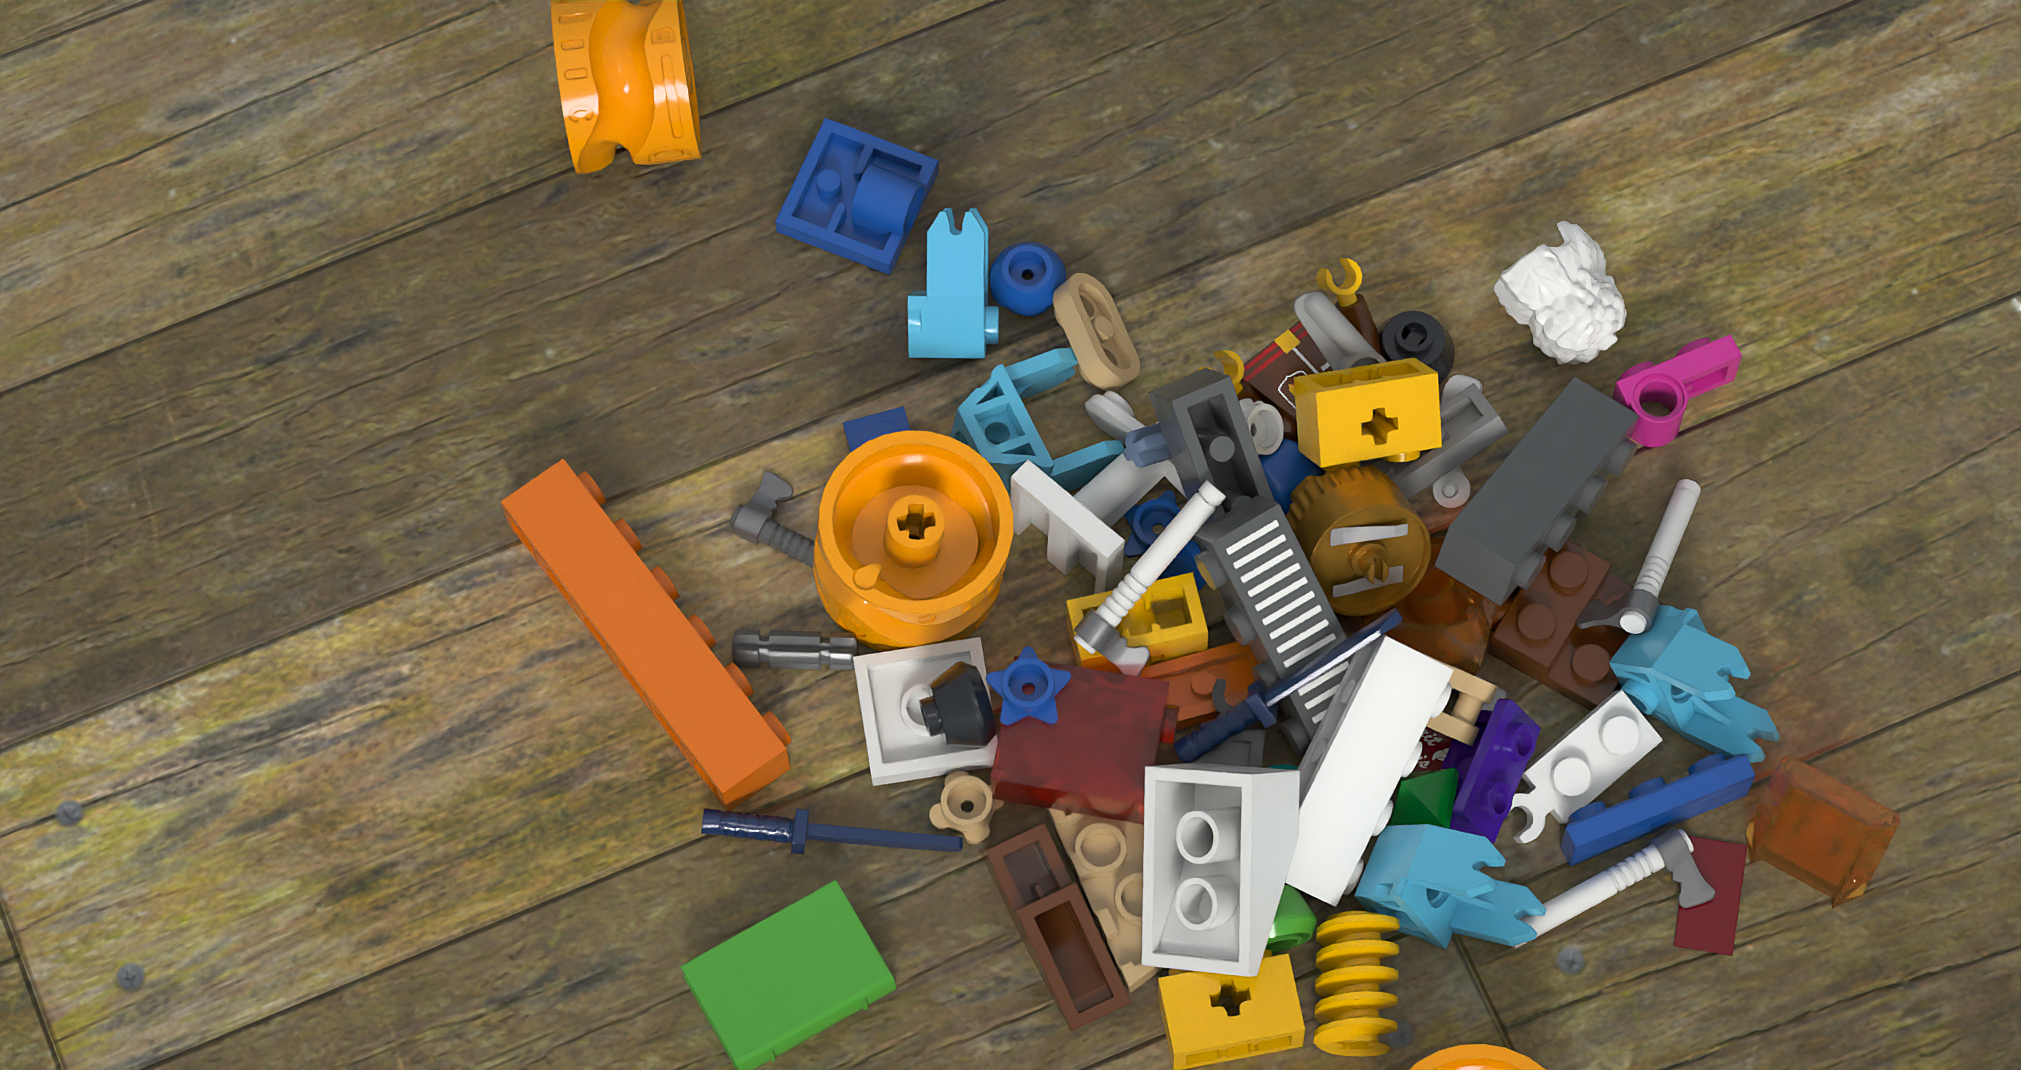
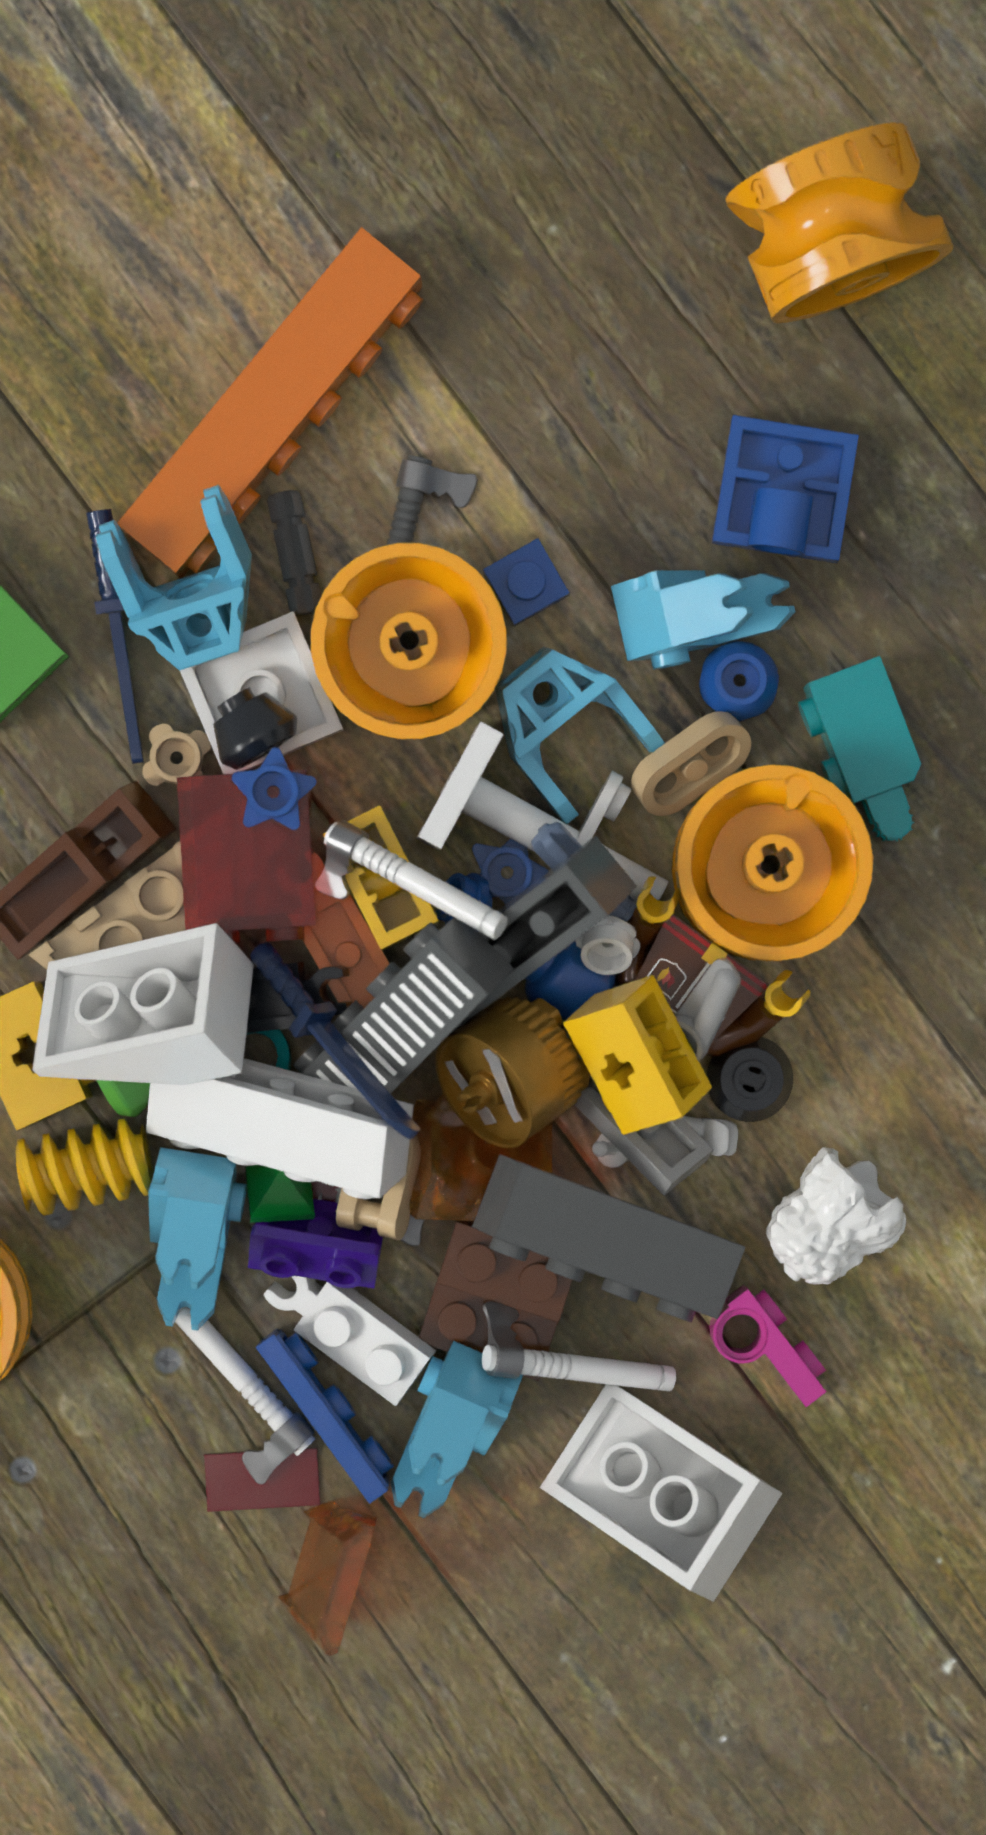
camera: 80 degrees right, 20 degrees up
(831, 735) = (194, 615): none -> medium azure piece
(1119, 175) = (865, 743): none -> teal hinge
(1209, 265) = (820, 853): none -> light orange piece
(1795, 514) = (661, 1491): none -> white slope

